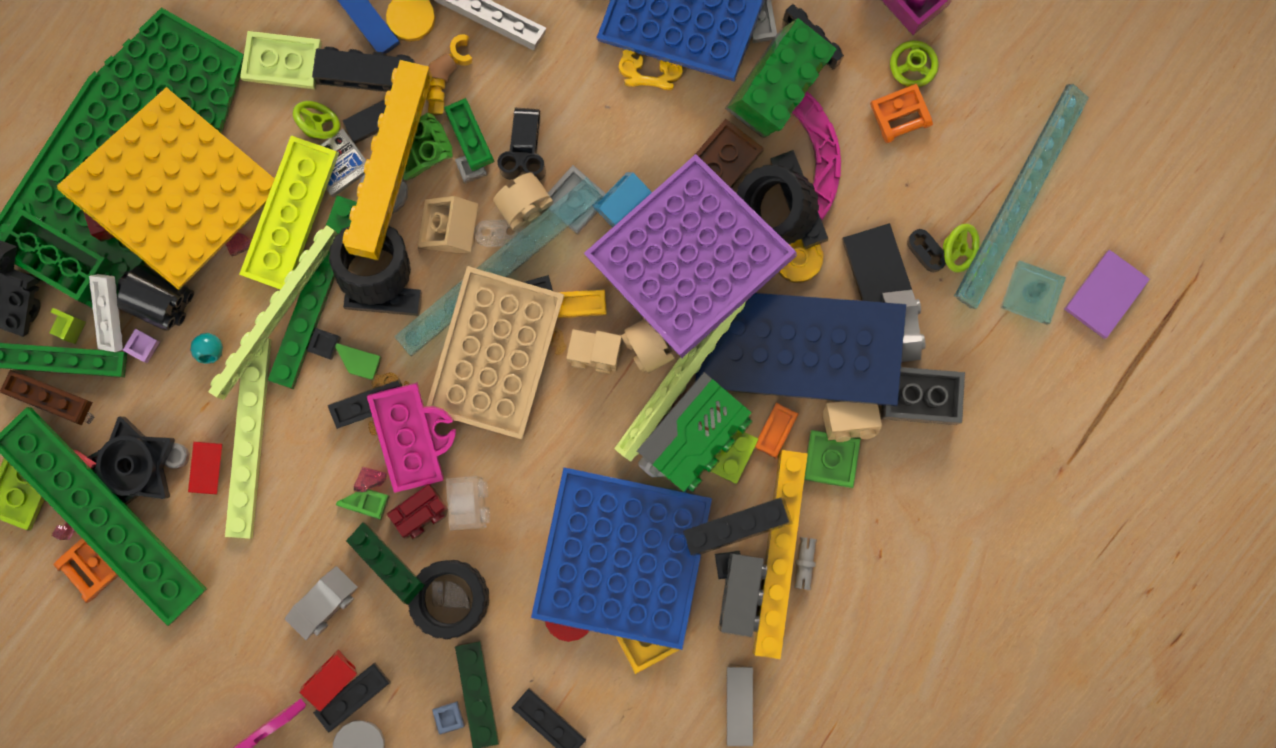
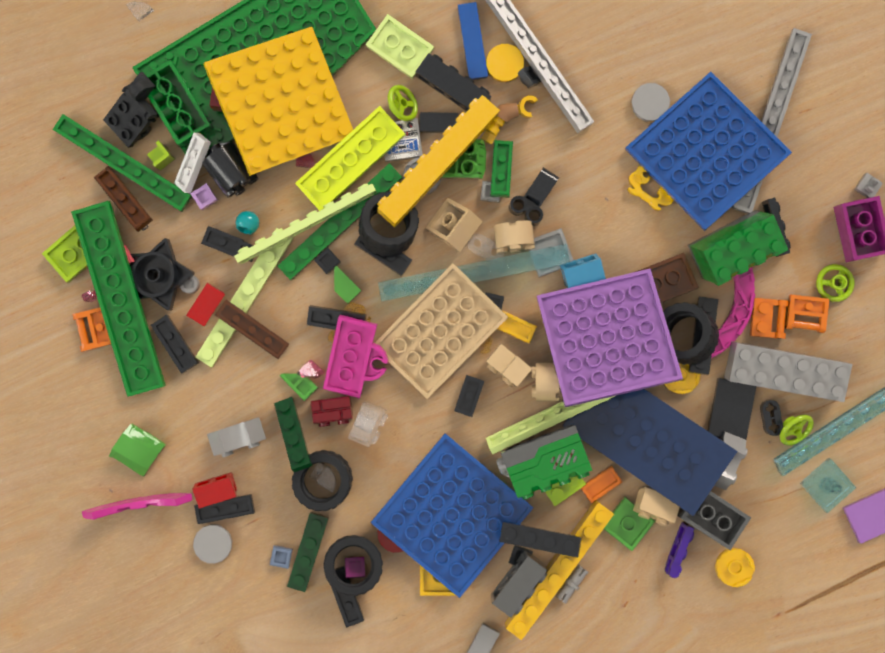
camera: 30 degrees right, 5 degrees up
(189, 386) = (223, 242): none -> black hinge
(192, 534) = (174, 344): none -> black plate
(210, 682) = (137, 449): none -> bright green slope
(274, 467) = (252, 329): none -> reddish brown tile
(445, 17) = (529, 77): none -> black plate
(514, 656) = (358, 588): none -> black tyre
(541, 682) = (354, 567): none -> magenta plate
(569, 410) = (469, 396): none -> black plate
(855, 145) = (762, 318): none -> orange plate
(906, 457) = (679, 550): none -> dark purple hinge
(915, 187) = (788, 371): none -> light grey brick
(980, 442) = (734, 567): none -> yellow tile

